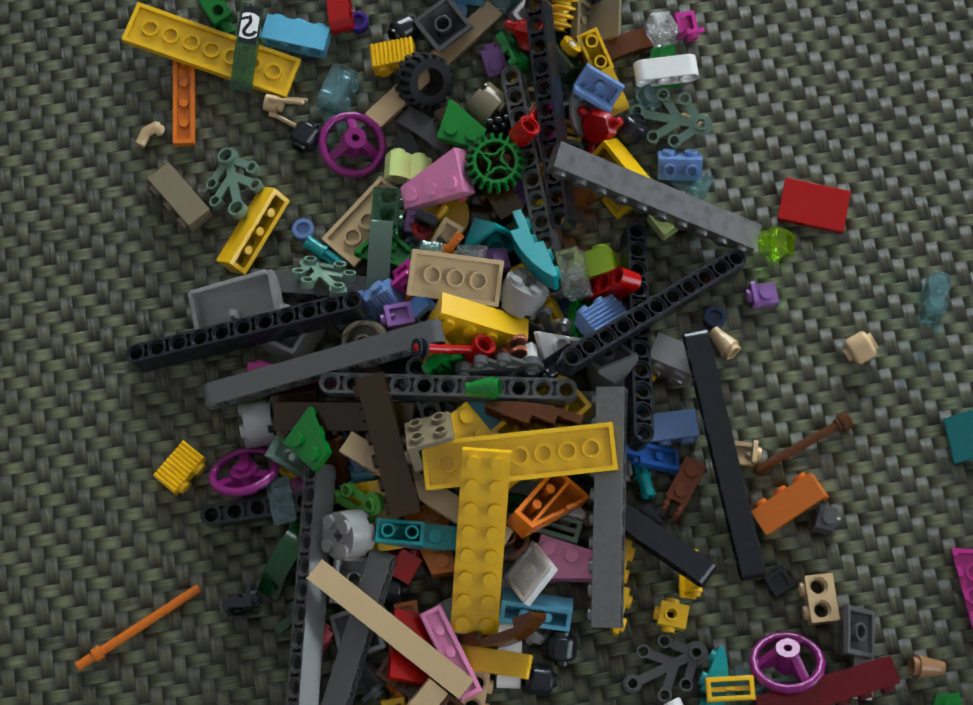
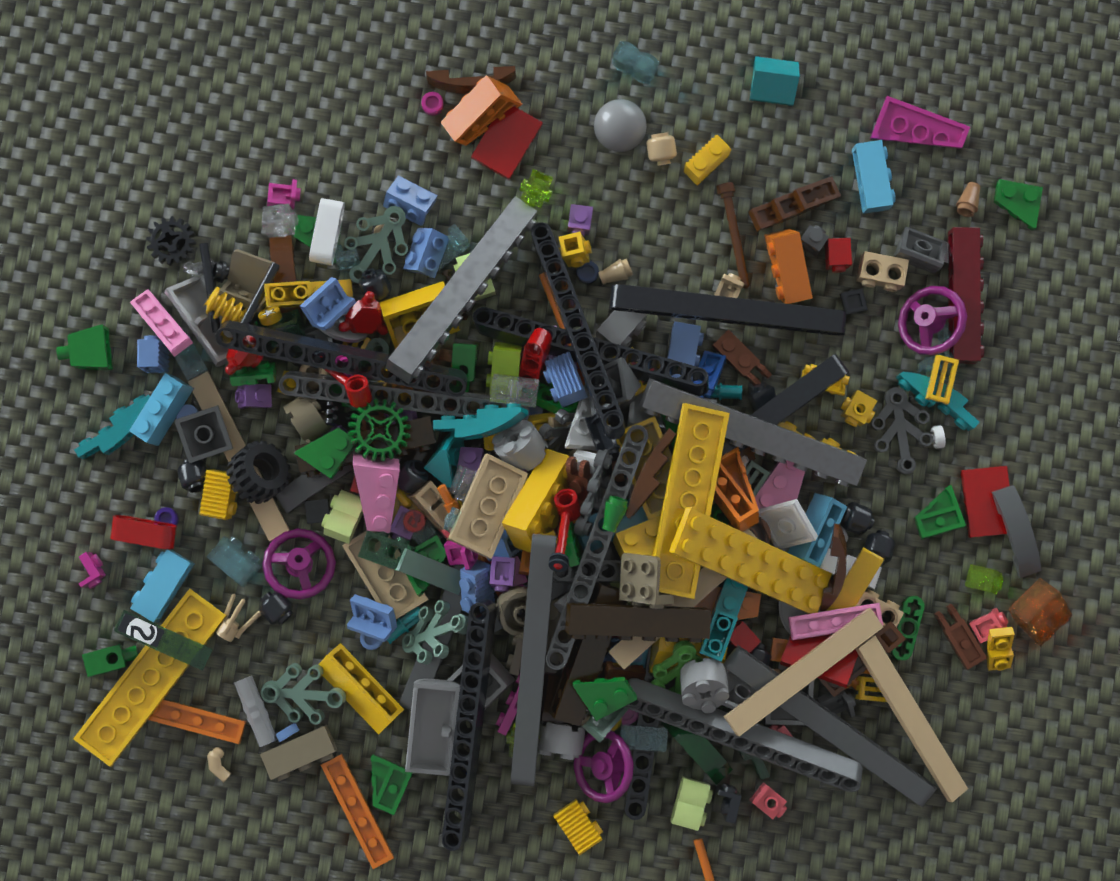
camera: 80 degrees left, 10 degrees up
(140, 265) = (357, 811): none -> orange plate
(172, 284) = (388, 784): none -> green wing
(195, 182) = (287, 732): none -> medium blue tile
(206, 149) = (255, 711): none -> light grey axle
(231, 568) = (690, 803): none -> yellowish green brick
(263, 640) = (761, 798): none -> coral brick
(320, 220) = (372, 618): none -> medium blue bracket
(425, 220) = (411, 515): black tile -> none
(463, 211) = (412, 476): none -> black head
(580, 27) = (259, 295): none -> black bar
(588, 231) = (465, 355): none -> green torso
(724, 136) = (411, 199): none -> medium blue bracket
(731, 295) = (574, 249): none -> yellow brick
(819, 548) = (838, 254): none -> red brick
(823, 129) = (432, 103): none -> dark pink tile
(832, 167) = (478, 109): none -> orange wedge
(855, 493) = (794, 203): none -> reddish brown slope
(866, 393) = (707, 159): none -> yellow brick
(869, 305) = (620, 125): none -> light grey piece
(870, 179) = (442, 80): none -> reddish brown slope
(912, 562) = (873, 176): none -> medium azure brick

